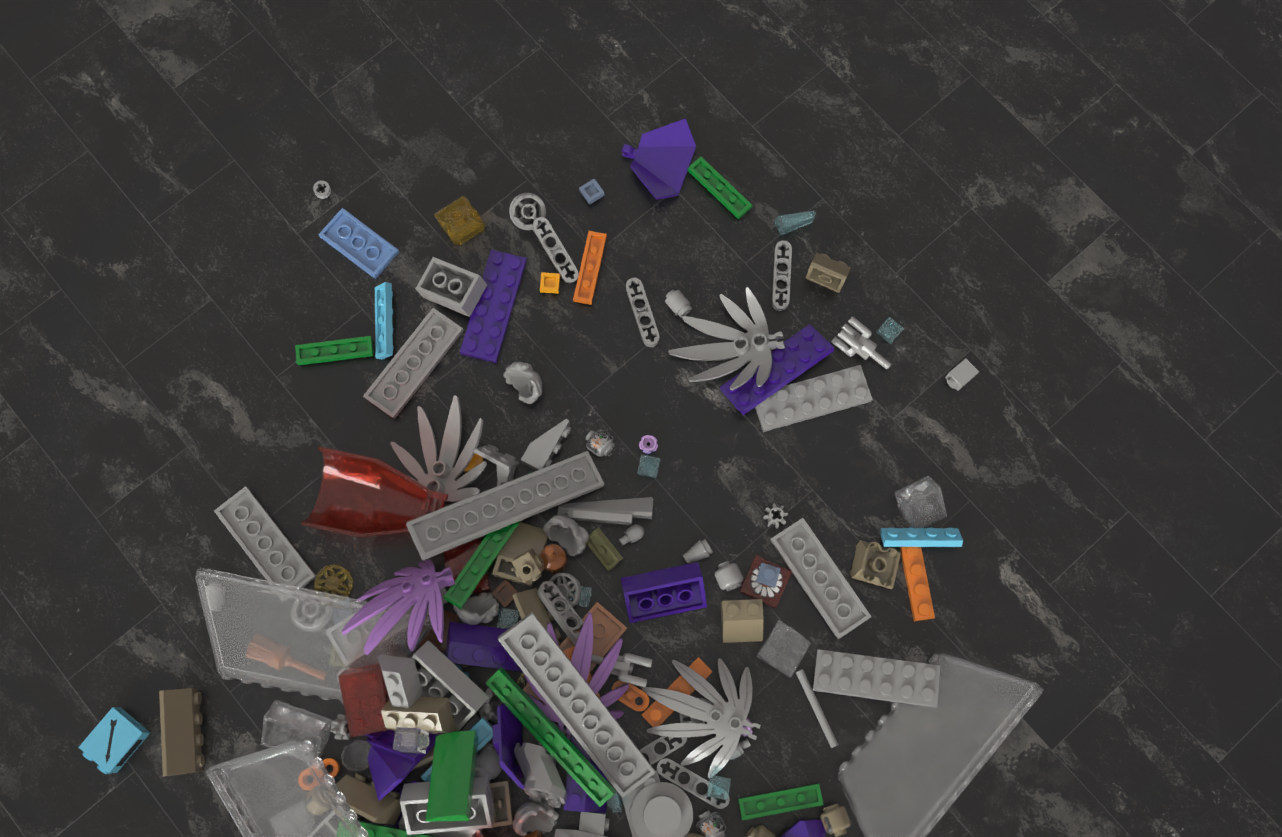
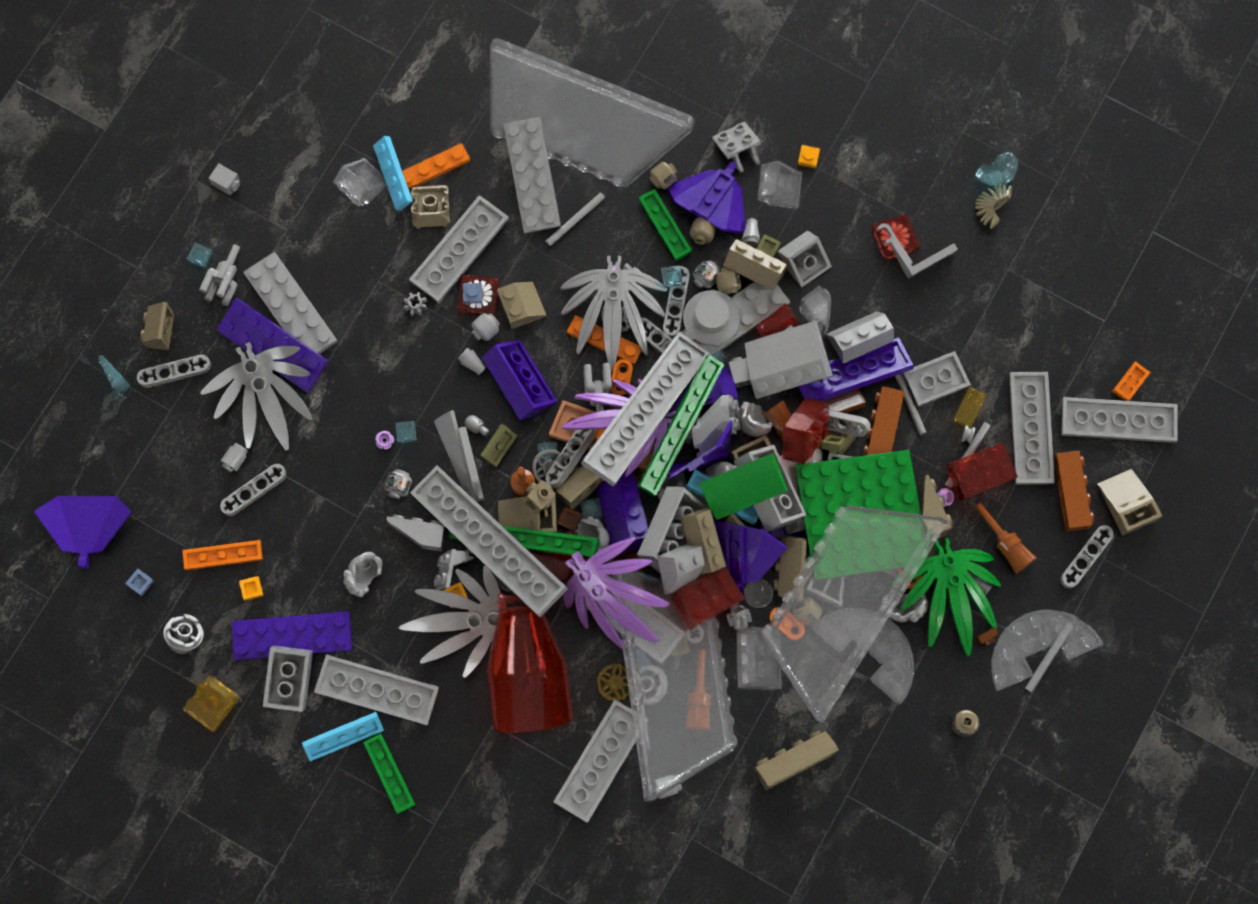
camera: 110 degrees left, 0 degrees up
(113, 740) = (827, 822): medium azure brick -> none
(317, 185) = (220, 866): light grey bush -> none
(358, 243) = (267, 797): medium blue tile -> none
(411, 740) = (727, 535): clear brick -> none
(552, 251) = (218, 594): light grey beam -> none
(567, 534) = (496, 480): light grey hair -> none
(719, 187) = (97, 458): green plate -> none
(784, 649) = (533, 261): clear slope -> none

